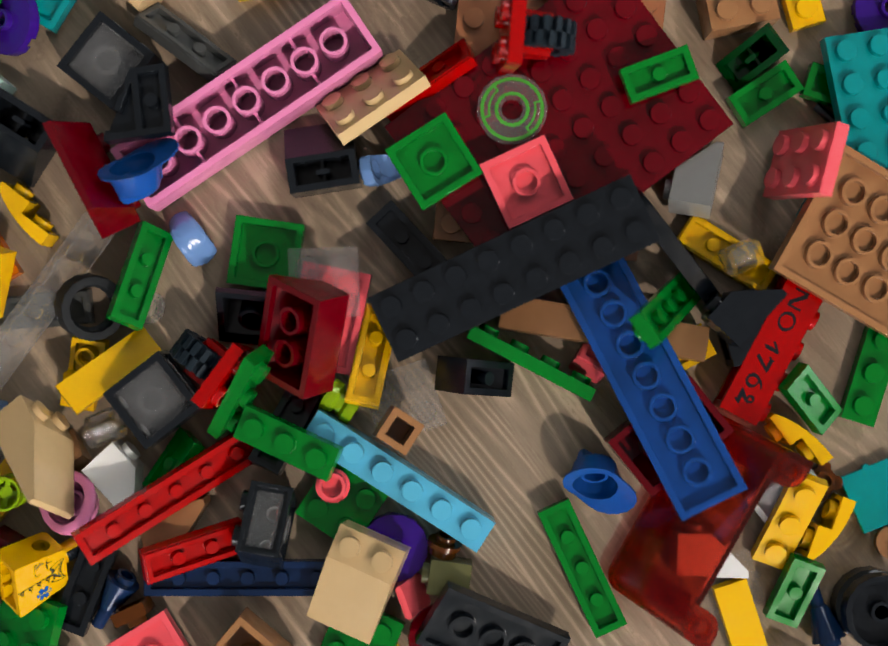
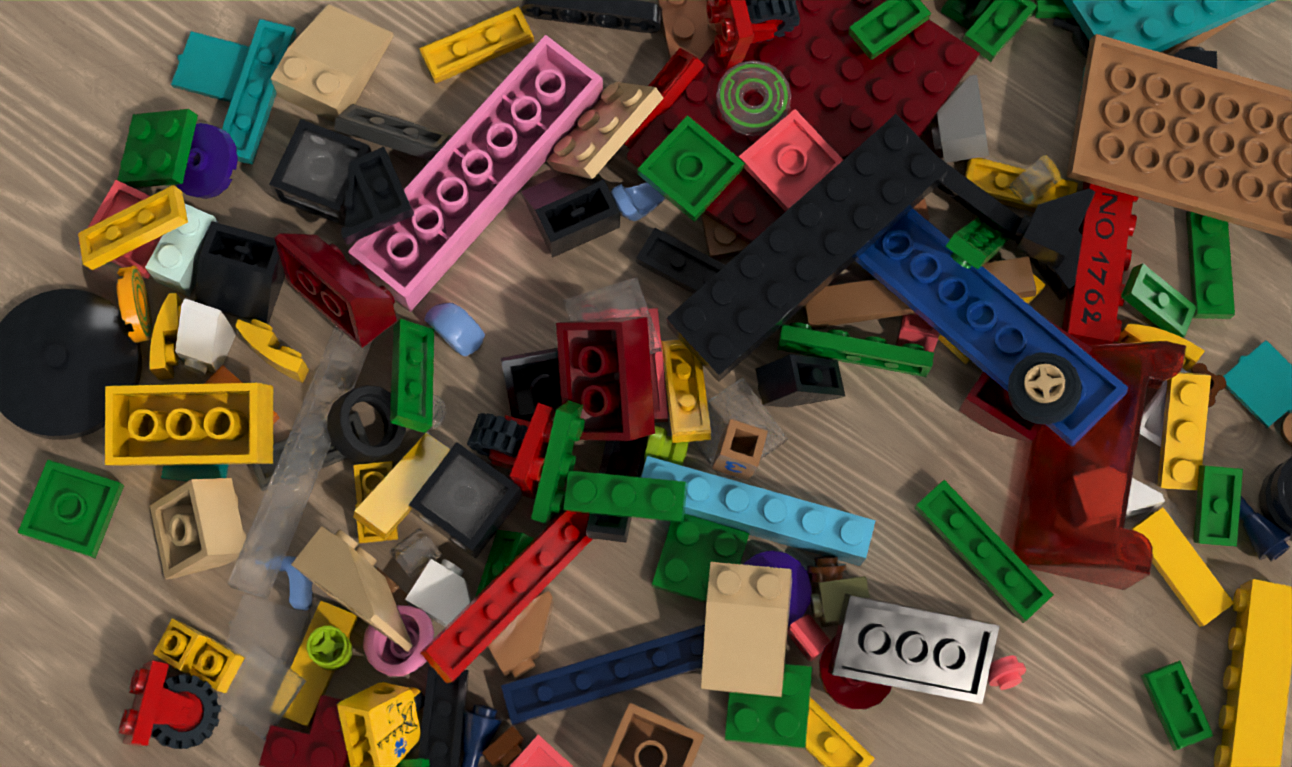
camera: 20 degrees left, 15 degrees down
(140, 171) = (390, 258): blue piece -> none
(188, 551) = (553, 651): red tile -> none
(261, 249) = (531, 314): green plate -> none
(265, 524) = (627, 595): black piece -> none
(334, 489) = (686, 537): coral plate -> none
(598, 484) = (973, 455): blue piece -> none
(676, 456) = (1044, 373): none -> black wheel
(806, 161) = (1065, 66): coral plate -> none
(820, 536) = (1224, 436): yellow slope -> none

